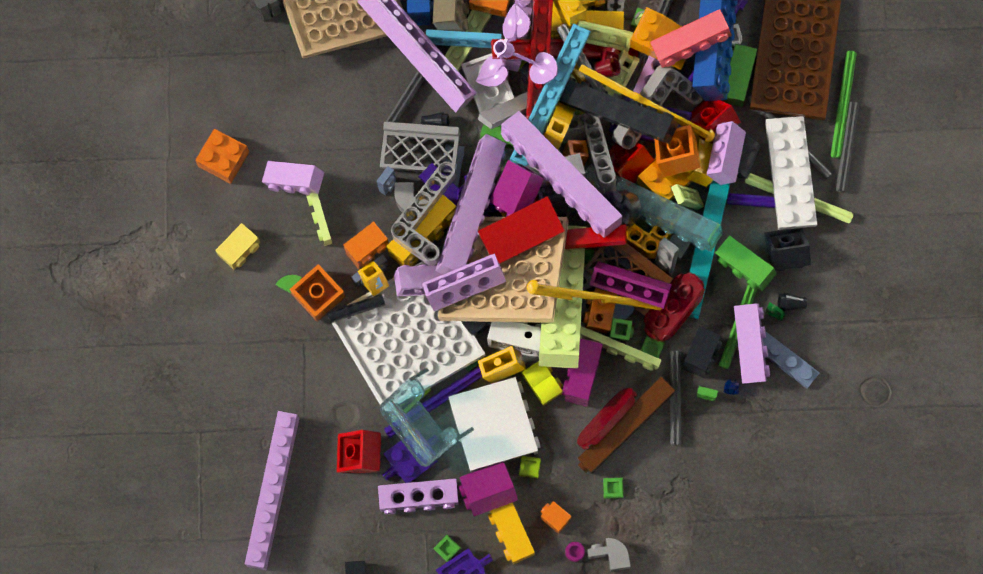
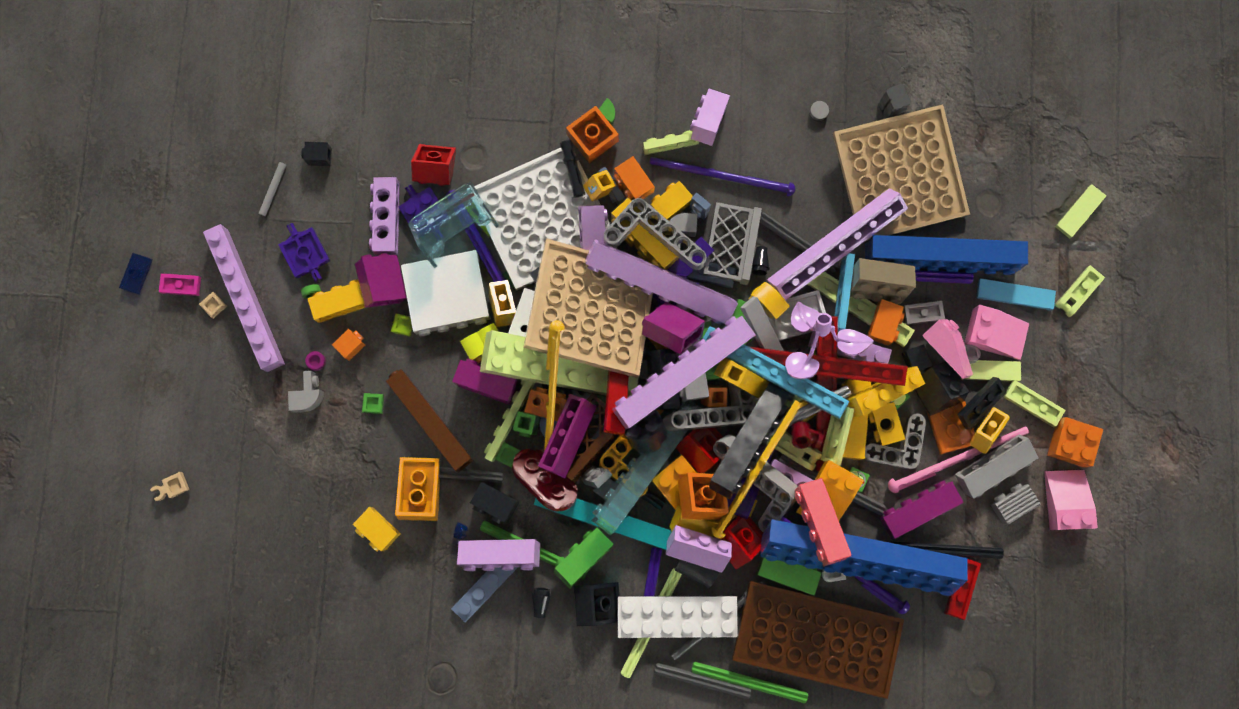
camera: 90 degrees right, 5 degrees up
(222, 156) = (739, 54): orange brick -> none
(238, 246) = (646, 65): light yellow brick -> none
(272, 490) = (405, 82): lavender brick -> none
(275, 76) = (819, 110): none -> light grey tile
(358, 99) = (787, 188): none -> dark purple bar
(381, 210) = (672, 201): none -> yellow brick
(447, 548) = (333, 241): bright green tile -> none
(464, 282) = (576, 263): lavender brick -> none
(477, 104) = (771, 300): none -> yellow brick
(504, 563) = (309, 290): none -> bright green tile
(521, 230) = (626, 326): red tile -> none
(607, 418) = (437, 401): dark red tile -> none
(687, 197) = (656, 503): yellowish green tile -> none
(695, 429) = (418, 489): none -> light orange slope
(706, 393) = (454, 504): bright green tile -> none
(739, 467) = (376, 529): none -> yellow brick
(775, 311) = (532, 583): green tile -> none

